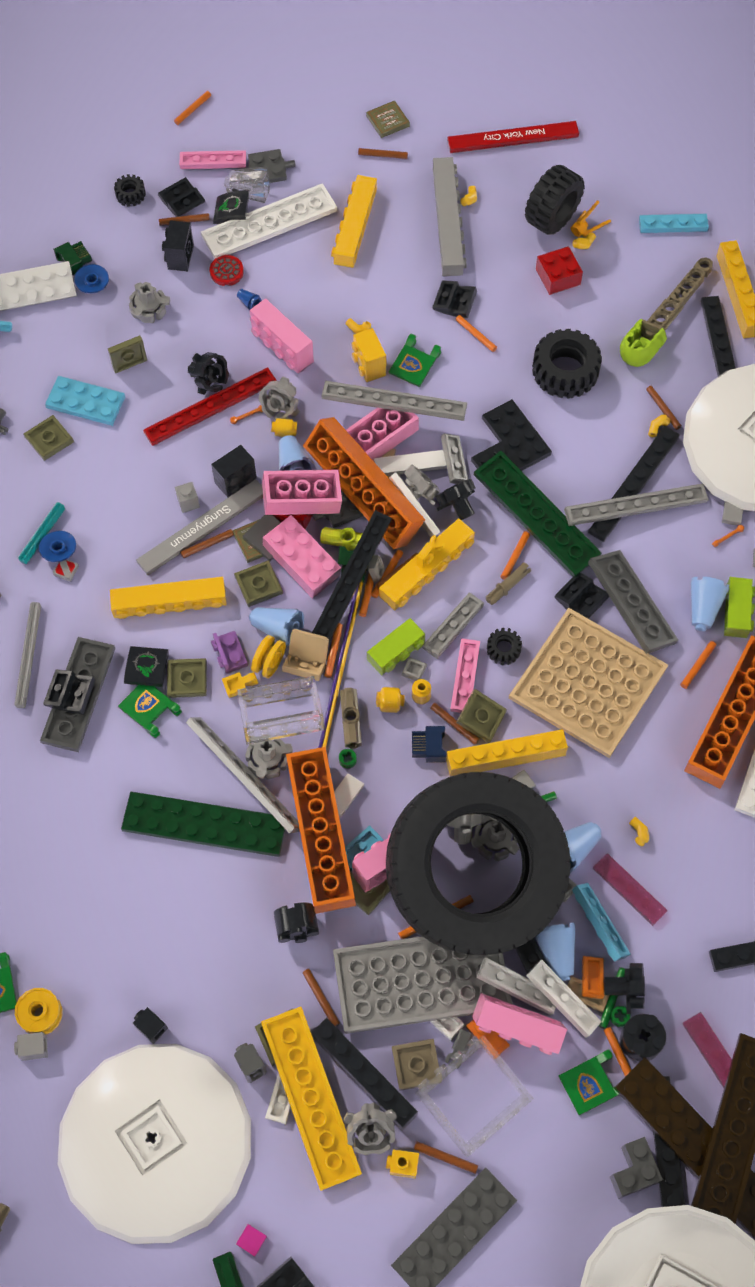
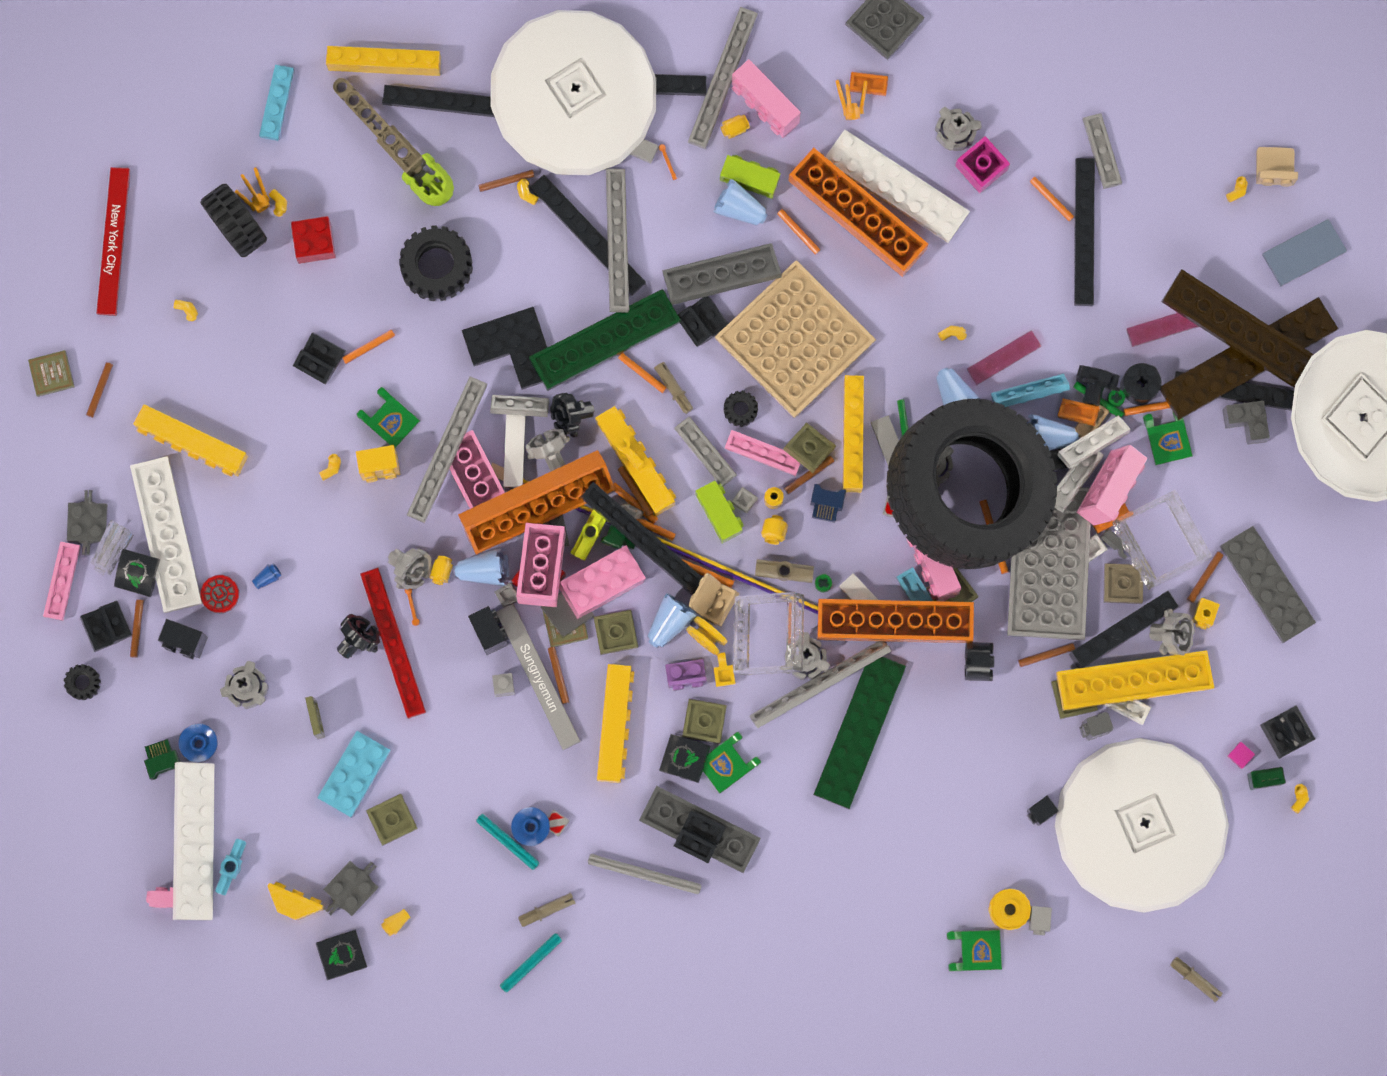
camera: 80 degrees left, 15 degrees up
(281, 336) = (331, 550): bright pink brick -> none
(428, 525) = (600, 446): white tile -> none
(448, 217) = (208, 338): light grey brick -> none

